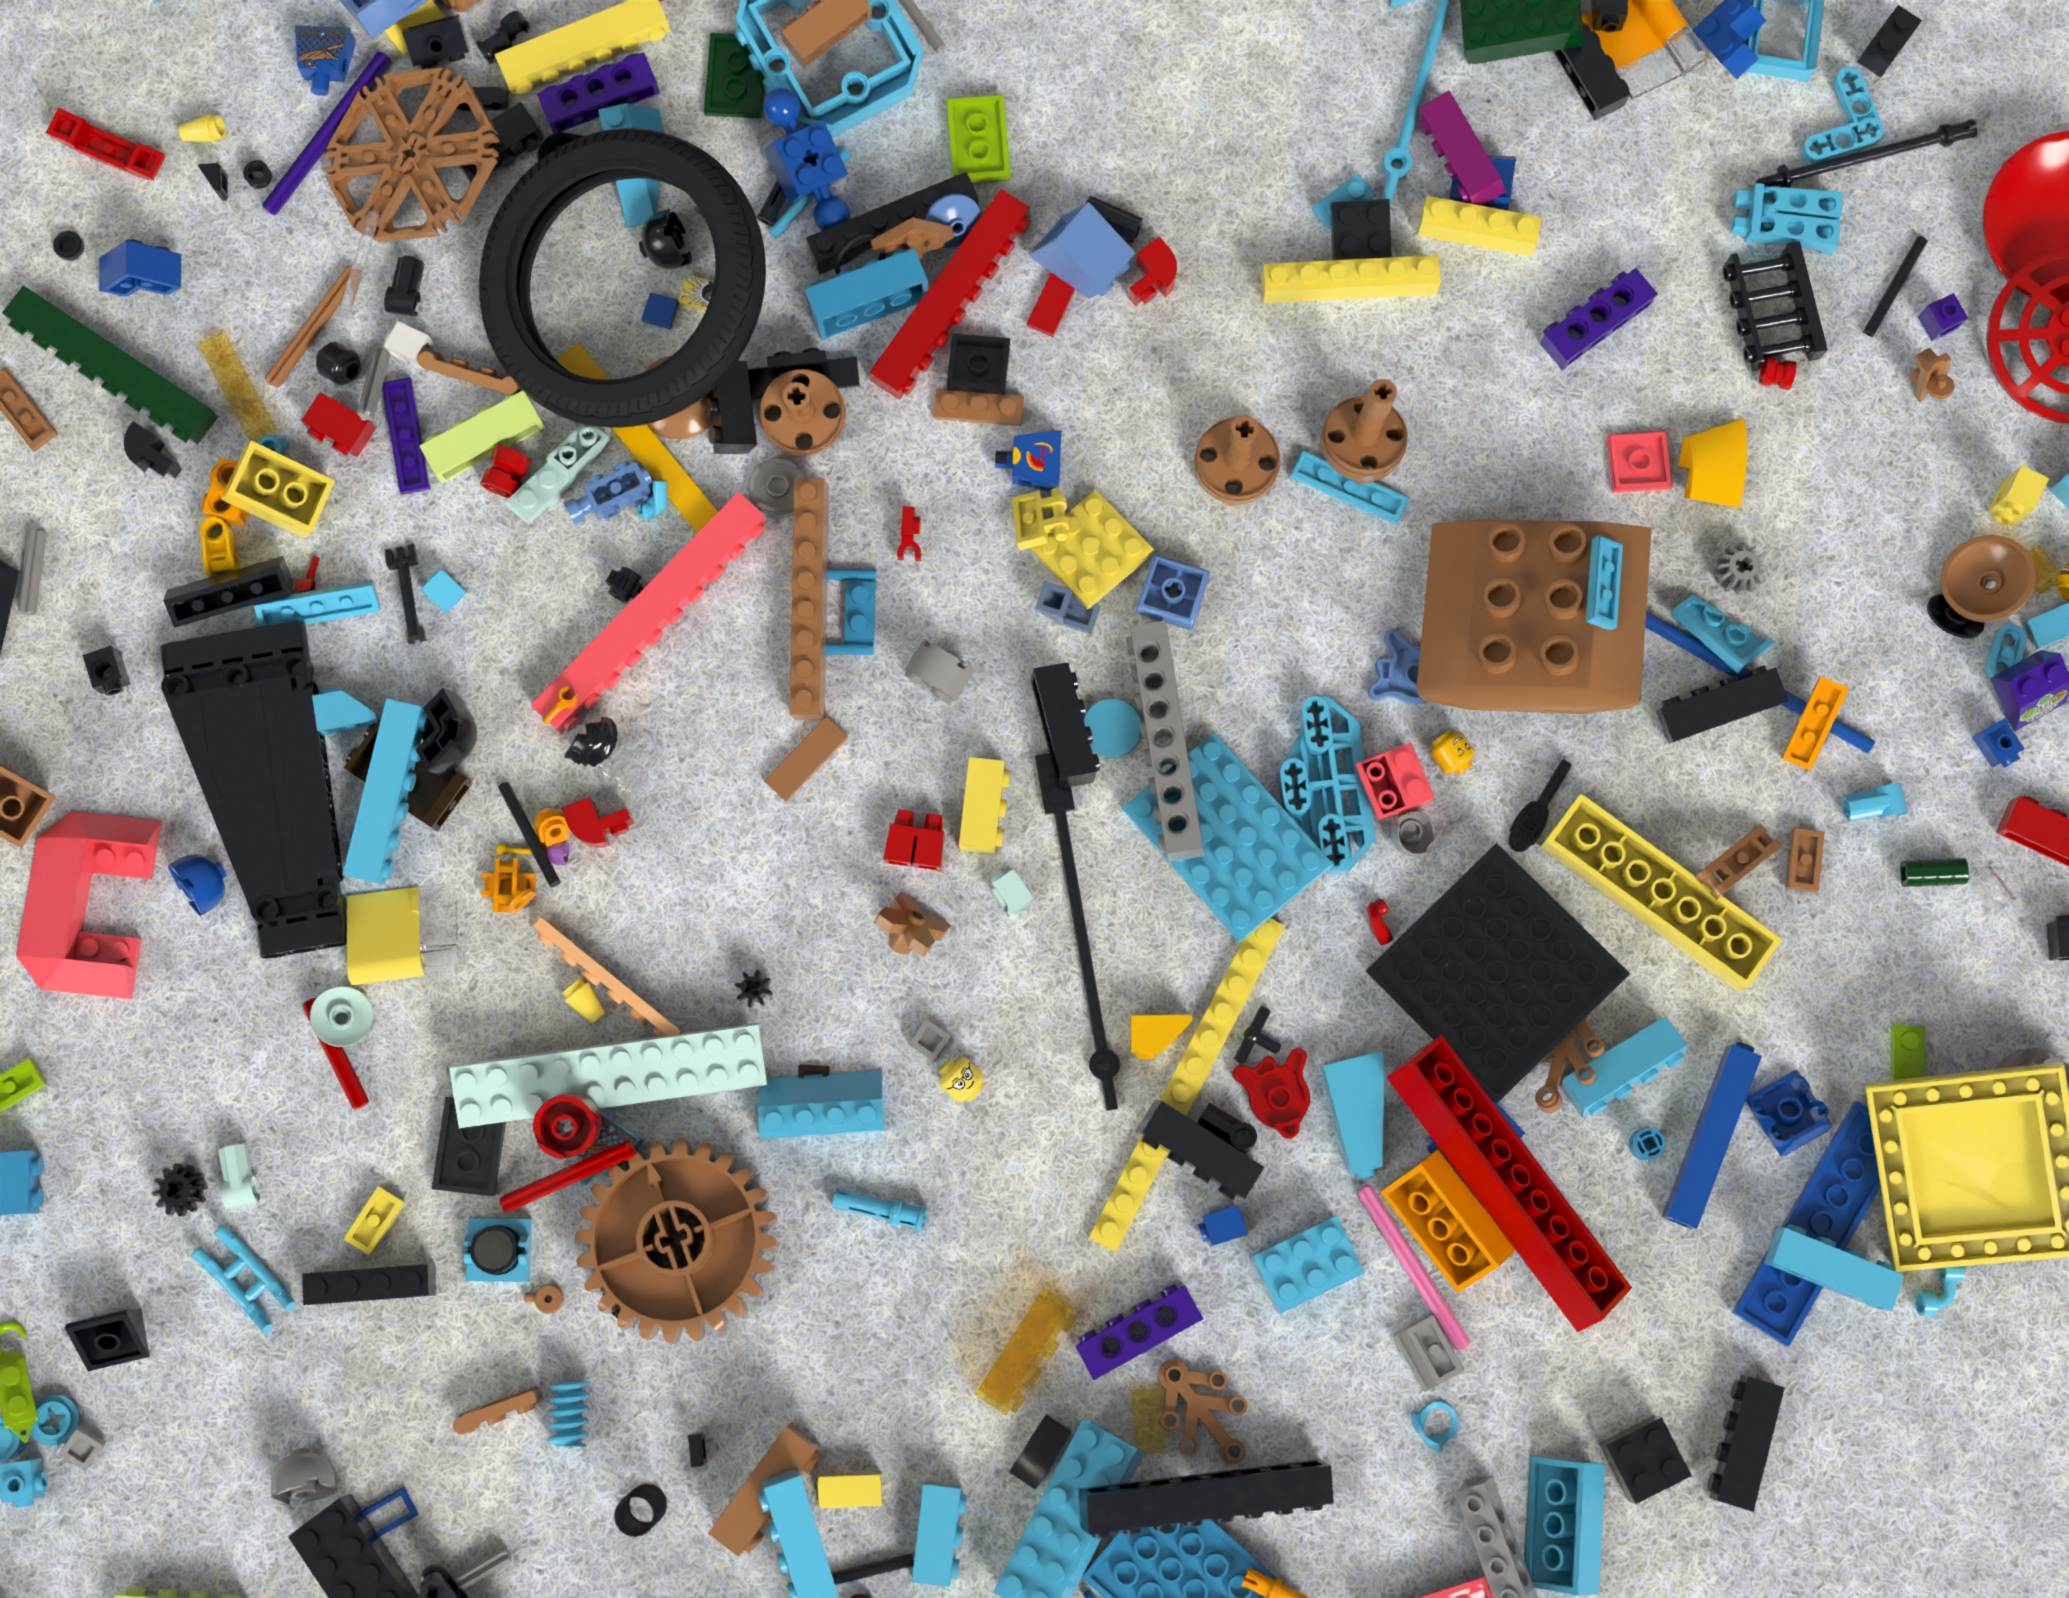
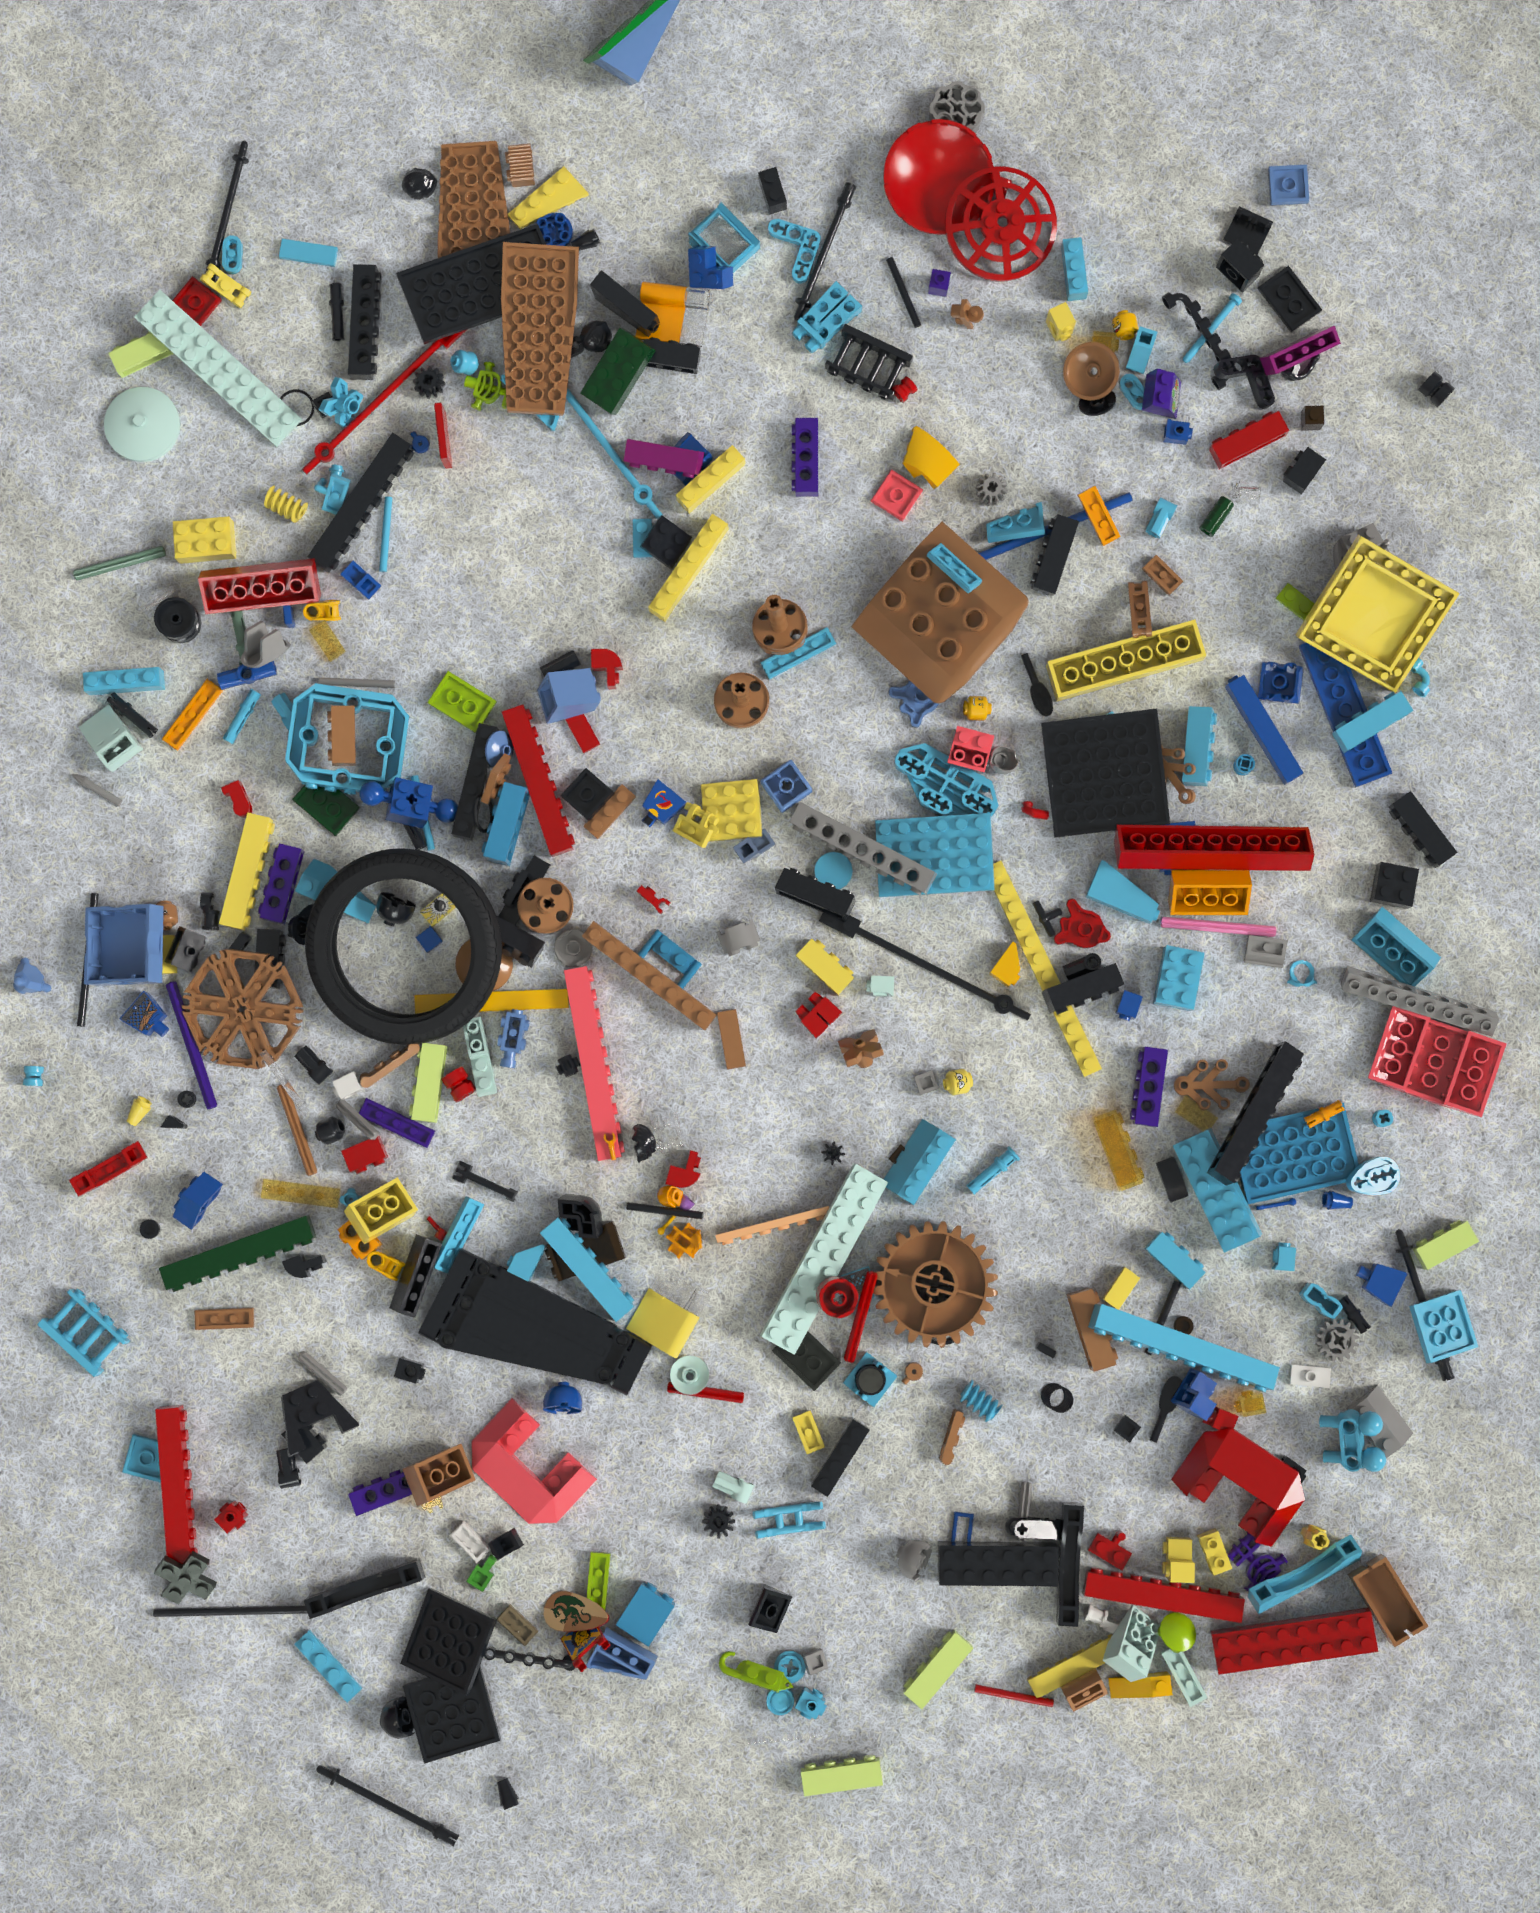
camera: 45 degrees left, 5 degrees up
(443, 591) = (499, 1163): medium azure slope -> none
(584, 1000) = (773, 1244): light yellow cone -> none
(657, 503) = (535, 1017): medium azure arm -> none

